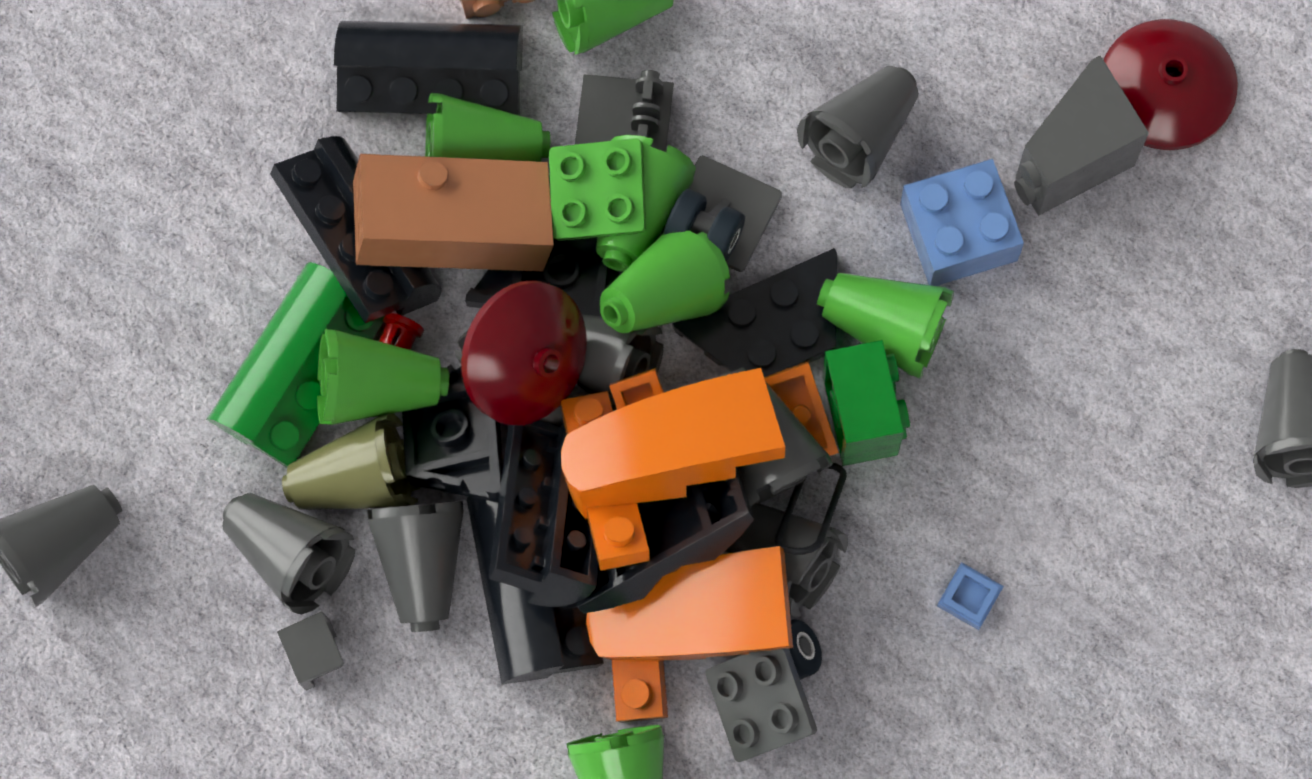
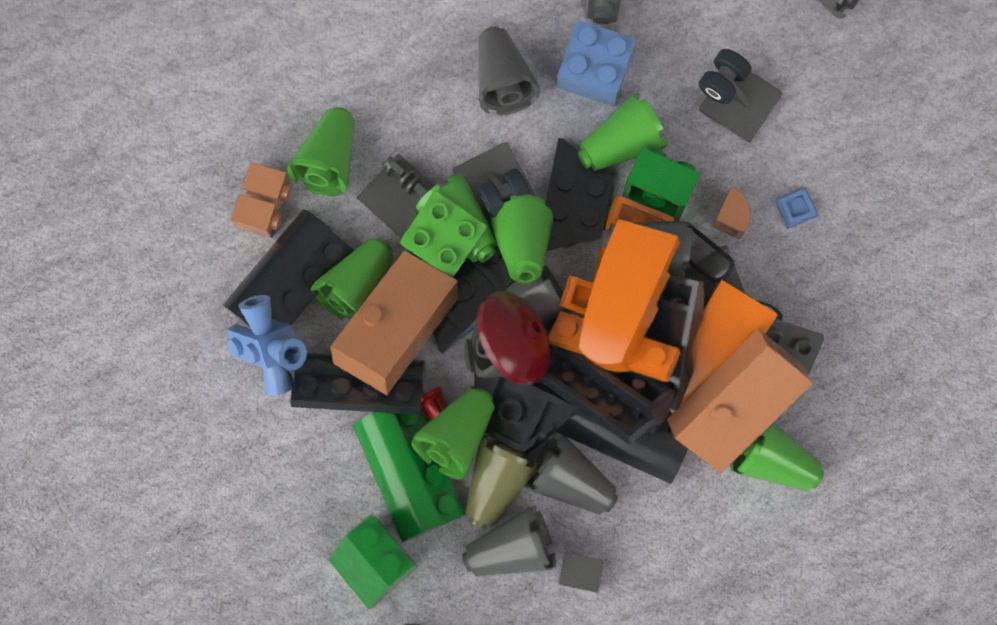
camera: 60 degrees left, 5 degrees up
(163, 397) = (371, 561): none -> green slope
(324, 92) = (267, 344): none -> medium blue brick
(649, 680) = (739, 401): none -> nougat brick
(896, 520) = (733, 215): none -> nougat brick
(1053, 419) = (736, 95): none -> dark grey plate

